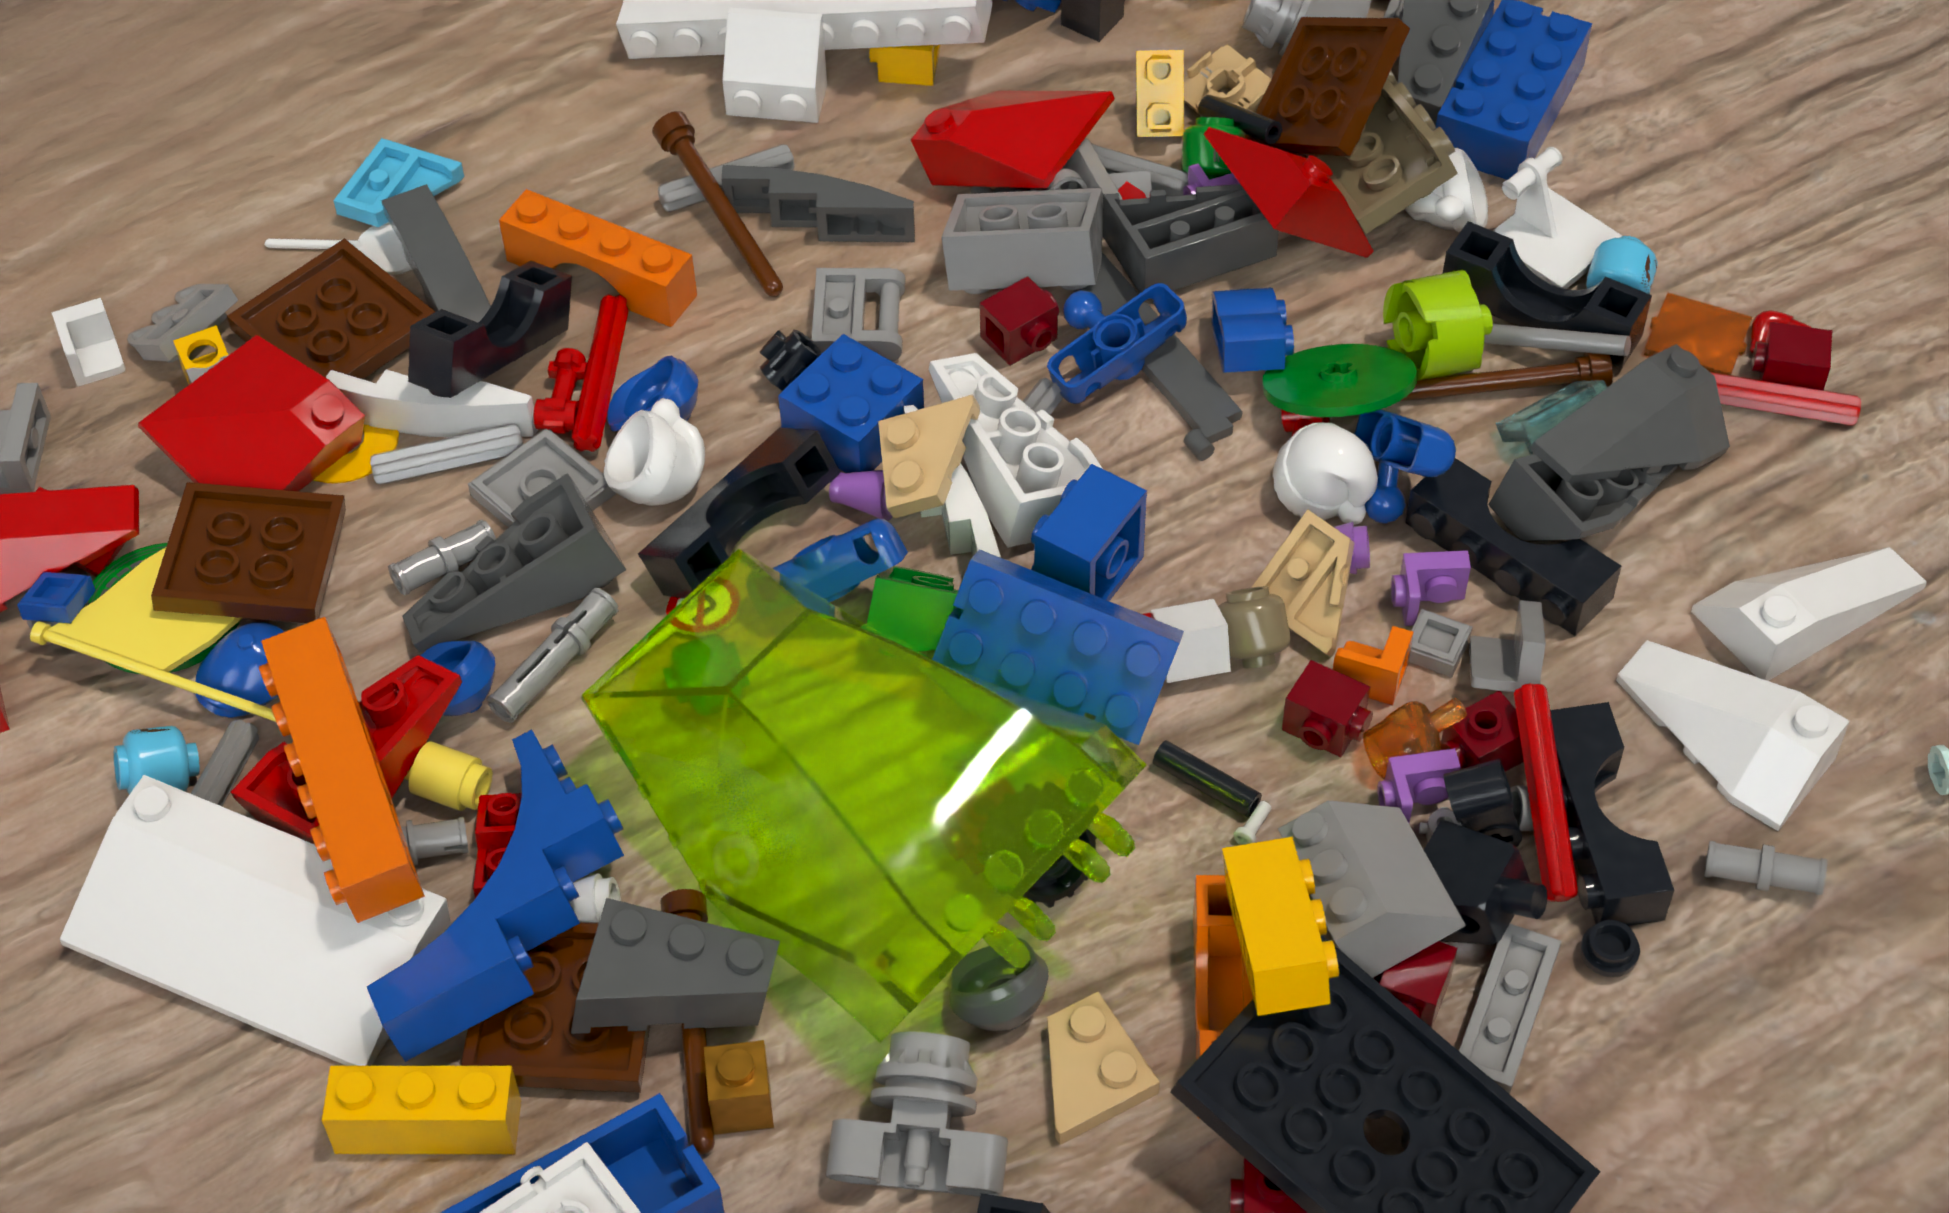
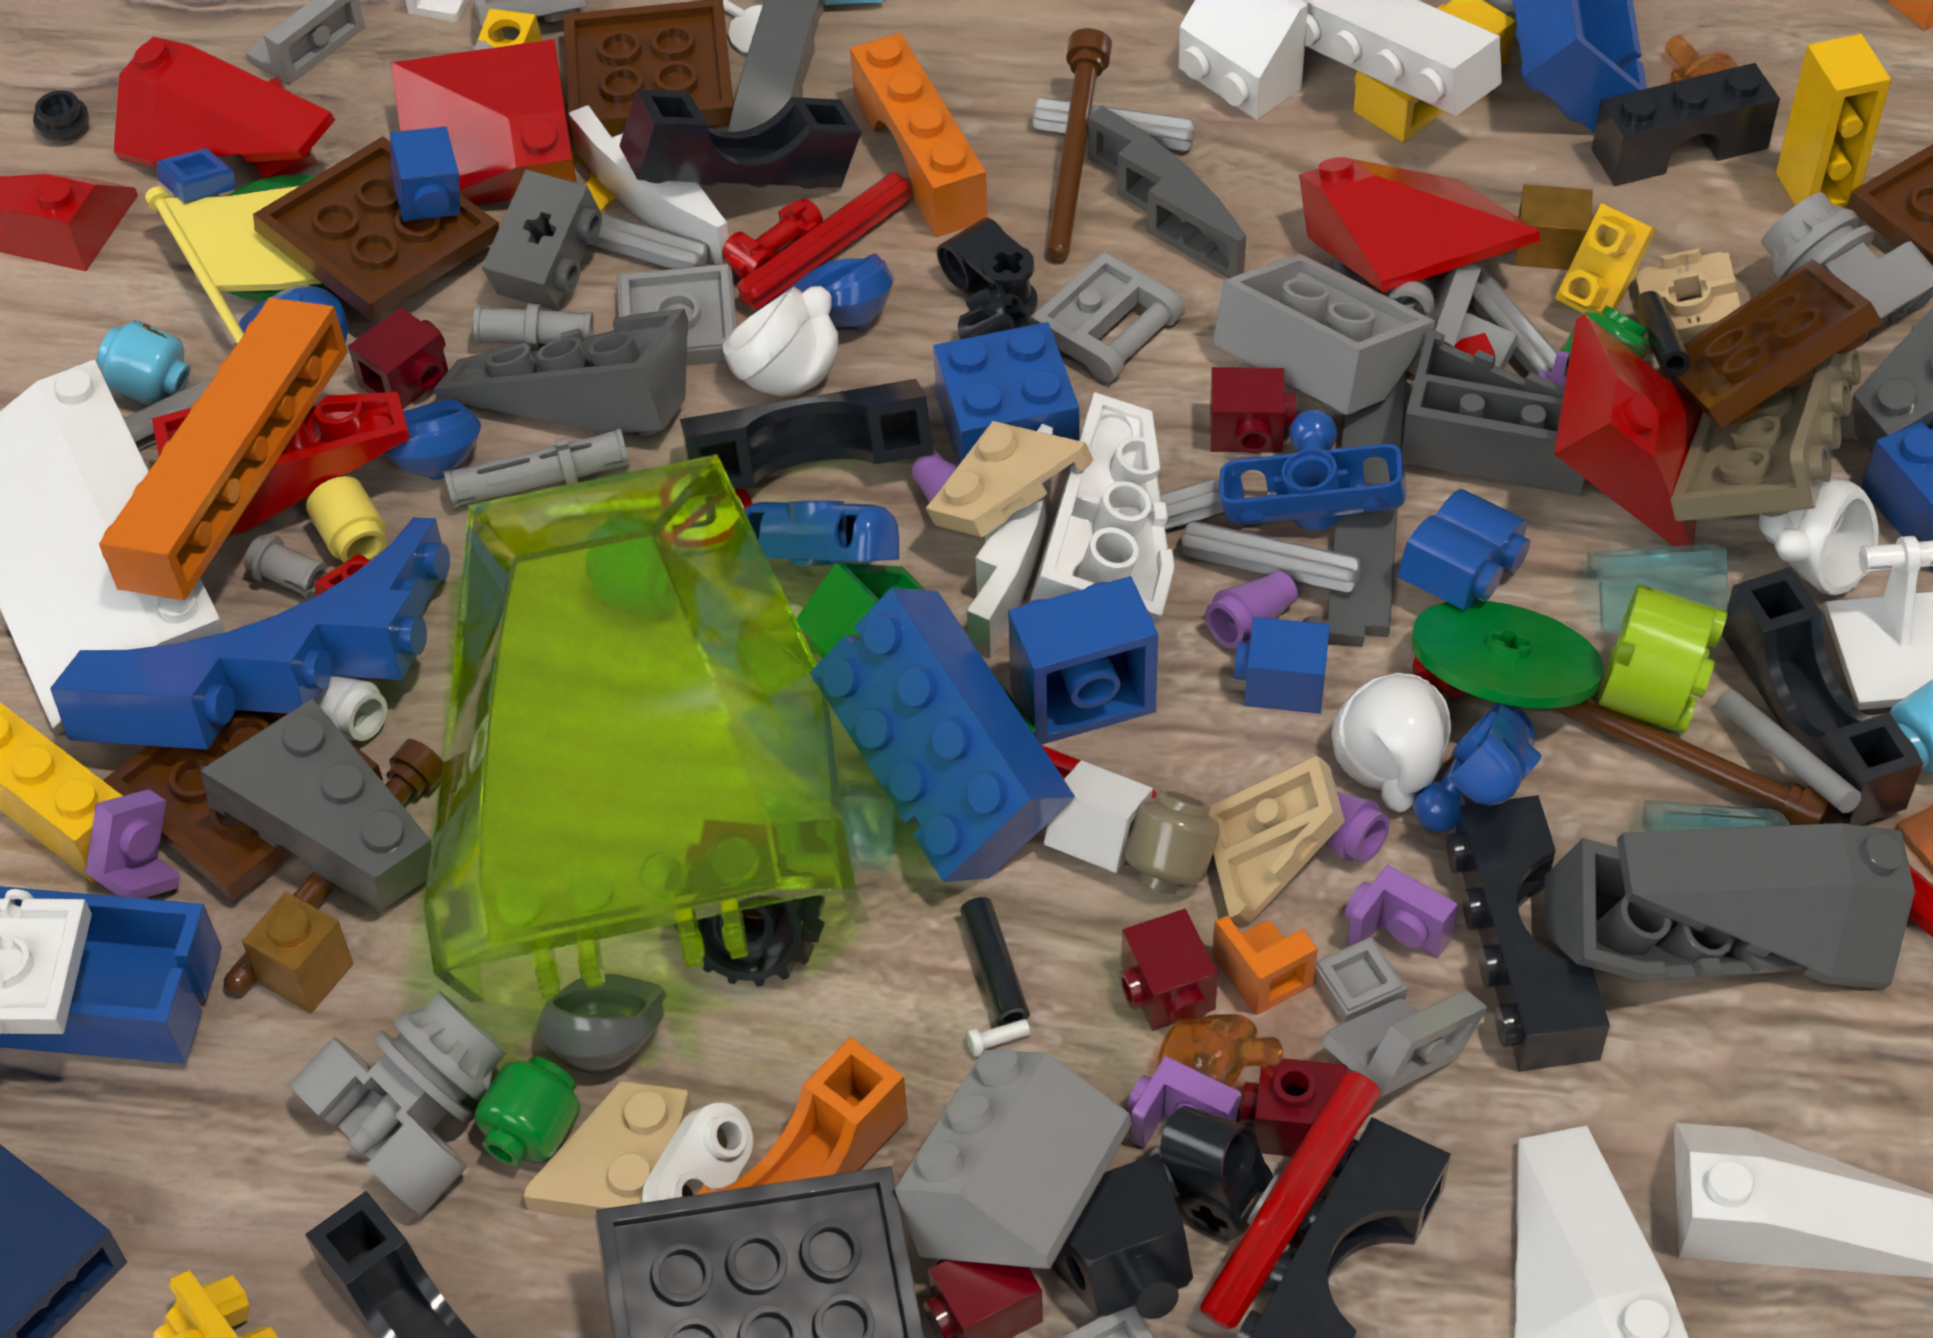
camera: 40 degrees right, 0 degrees up
(265, 487) = (424, 173): none -> blue brick
(369, 636) = (400, 357): none -> dark red brick
(388, 460) = (543, 240): none -> dark grey brick
(533, 1105) = (127, 846): none -> medium lavender bracket
(741, 321) = (988, 259): none -> black piece
(1013, 1076) = (527, 1111): none -> green head
(1103, 73) = (1563, 221): none -> pearl gold brick
(1129, 407) = (1268, 555): none -> light grey axle
(1147, 453) = (1233, 608): none -> medium lavender cone
(1157, 1032) = (696, 1155): none -> white plate
(1208, 472) = (1284, 664): none -> blue brick
(1279, 926) = (838, 1131): yellow brick -> none
(1370, 276) = (1683, 570): none -> clear light blue panel

